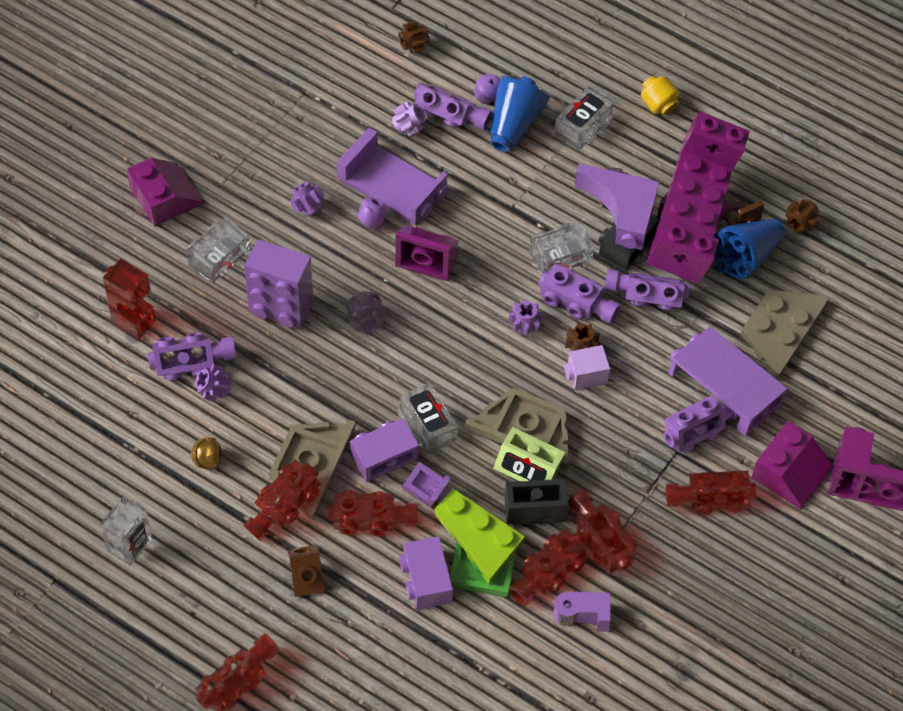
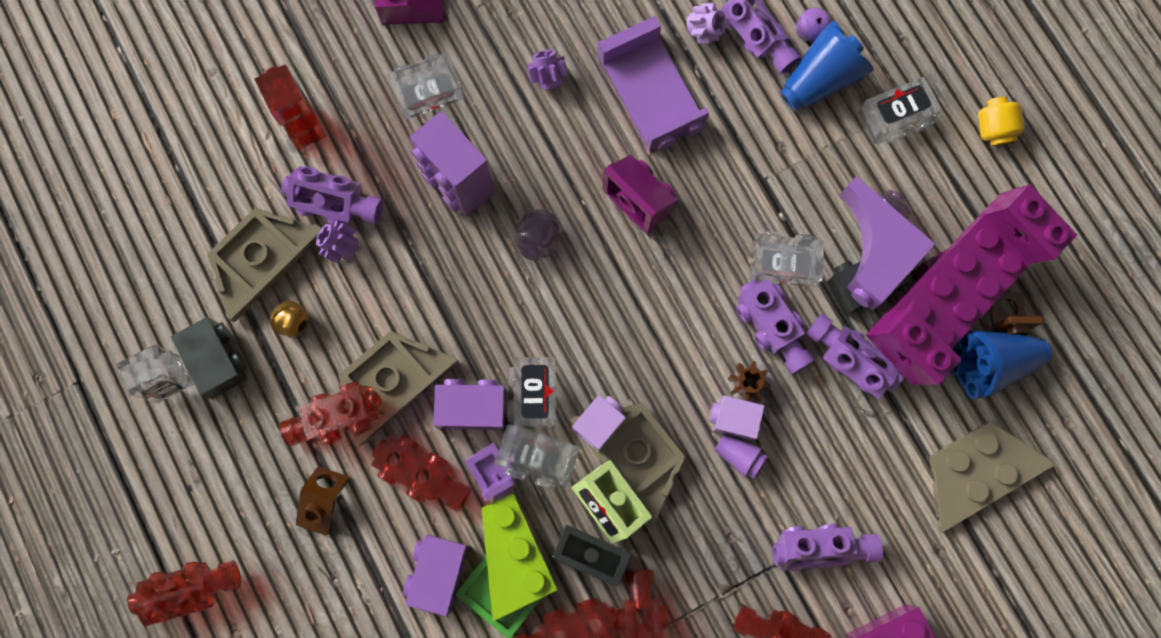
camera: 30 degrees right, 20 degrees up
(153, 423) = (257, 256): none -> dark tan wing
(166, 510) = (210, 357): none -> pearl dark grey brick
(372, 213) = (607, 118): medium lavender piece -> none
(456, 454) = (536, 456): none -> clear brick
(489, 409) = (599, 422): none -> lavender brick
(526, 317) = (707, 316): medium lavender gear -> none
(606, 391) = (741, 455): none -> medium lavender cone
(730, 377) = (884, 512): medium lavender panel -> none
(802, 215) = (1081, 350): reddish brown gear -> none

